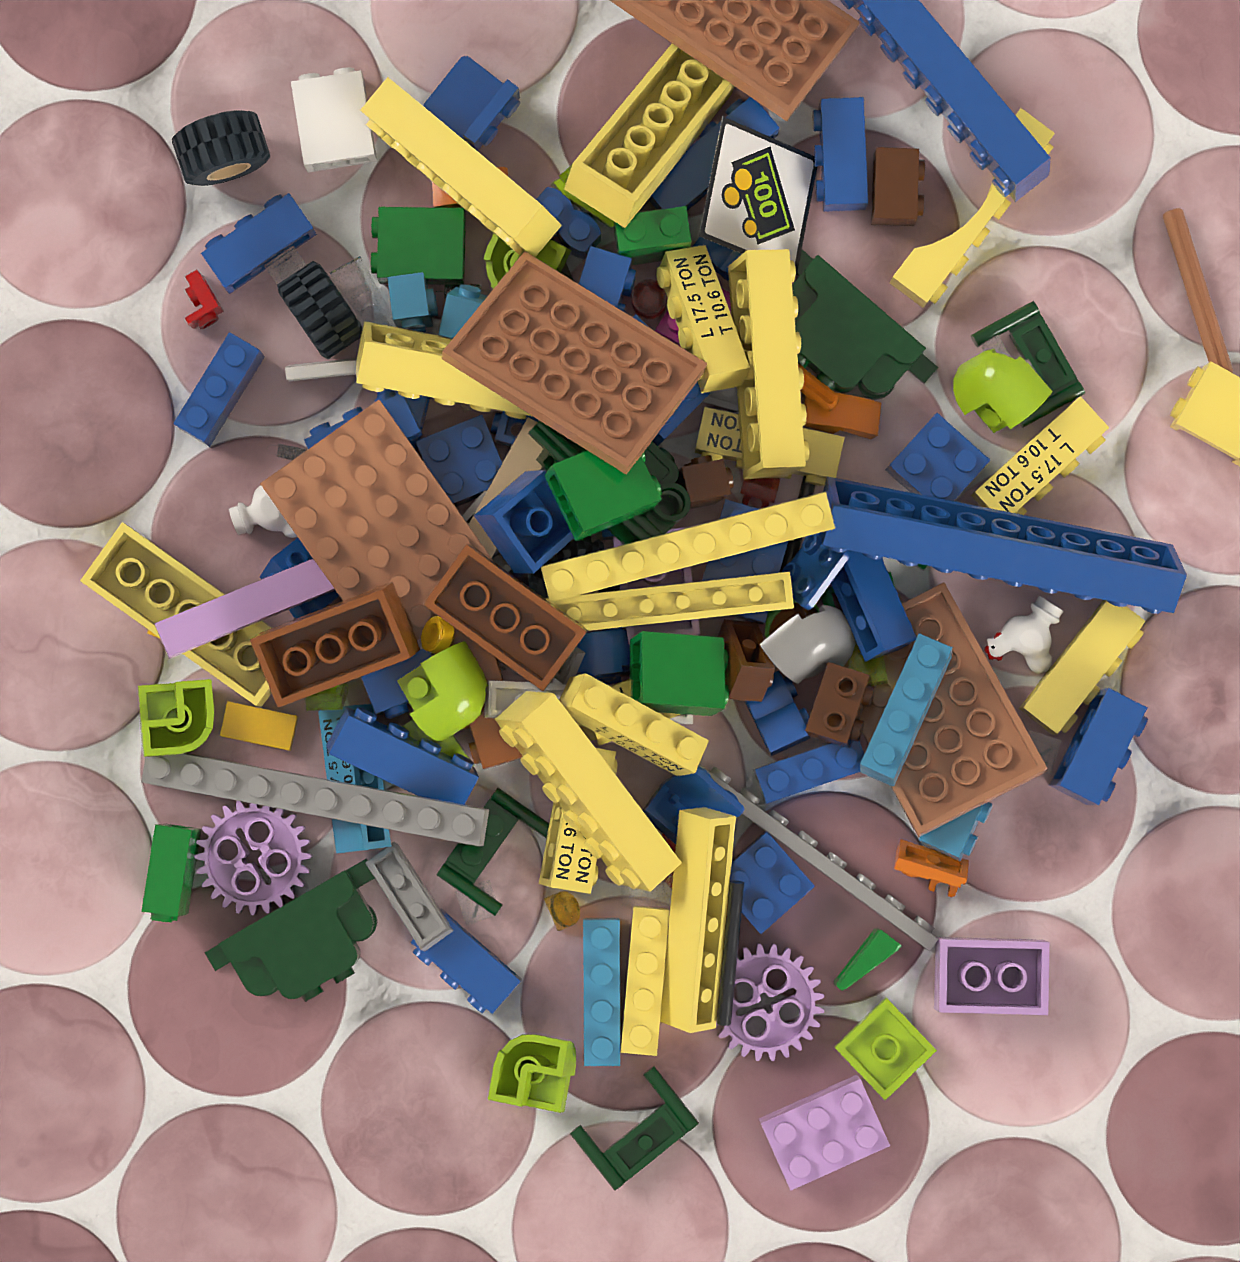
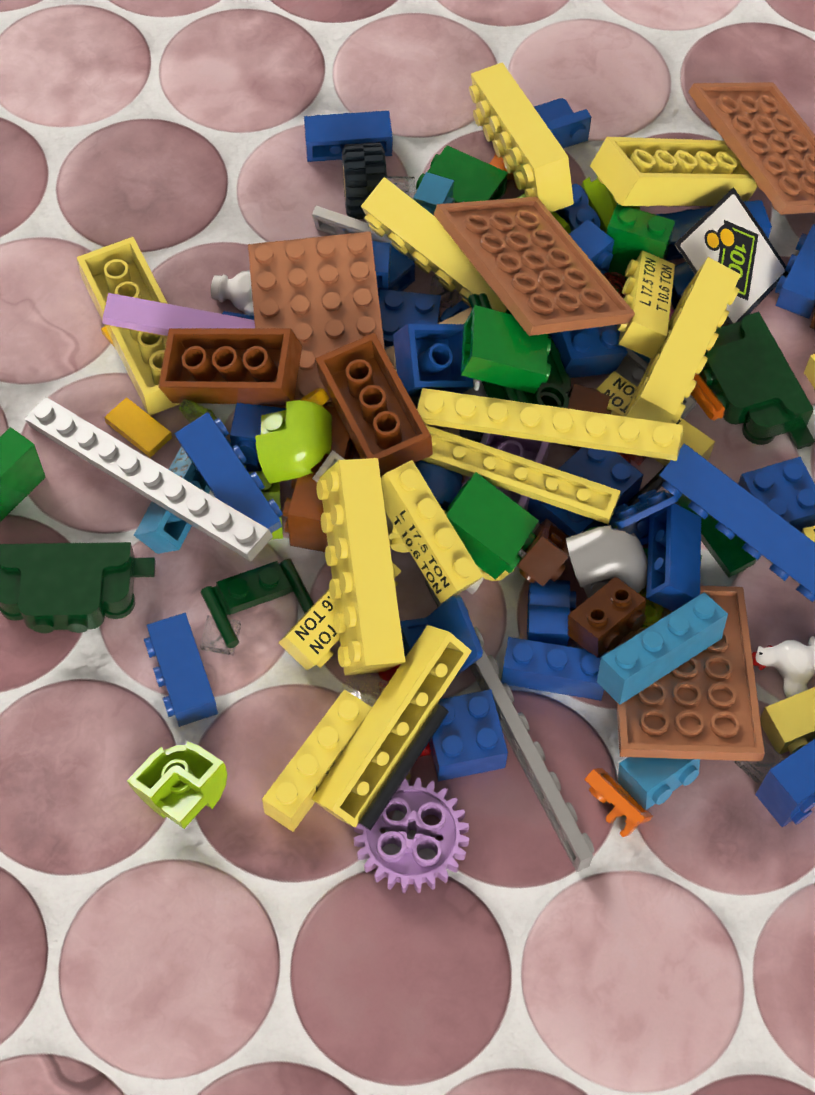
camera: 30 degrees right, 25 degrees down
(175, 716) = (80, 381): lime brick -> none
(201, 294) = (285, 154): red bracket -> none
(219, 389) = (260, 203): blue brick -> none
(221, 147) = (359, 63): black wheel -> none
(225, 873) = (100, 507): lavender gear -> none
(331, 121) = (443, 94): white brick -> none
(409, 896) = (168, 592): light grey tile -> none
(563, 909) = (285, 675): clear yellow plate -> none
(601, 991) = (274, 749): dark azure brick -> none
(643, 1141) = (236, 895): dark green plate -> none
(824, 1132) = (399, 972): lavender brick -> none
(850, 415) = (726, 433): orange slope -> none
(870, 954) = (523, 844): green slope -> none
(885, 1048) = (495, 932): lime plate -> none
(991, 976) = (625, 915): lavender brick -> none

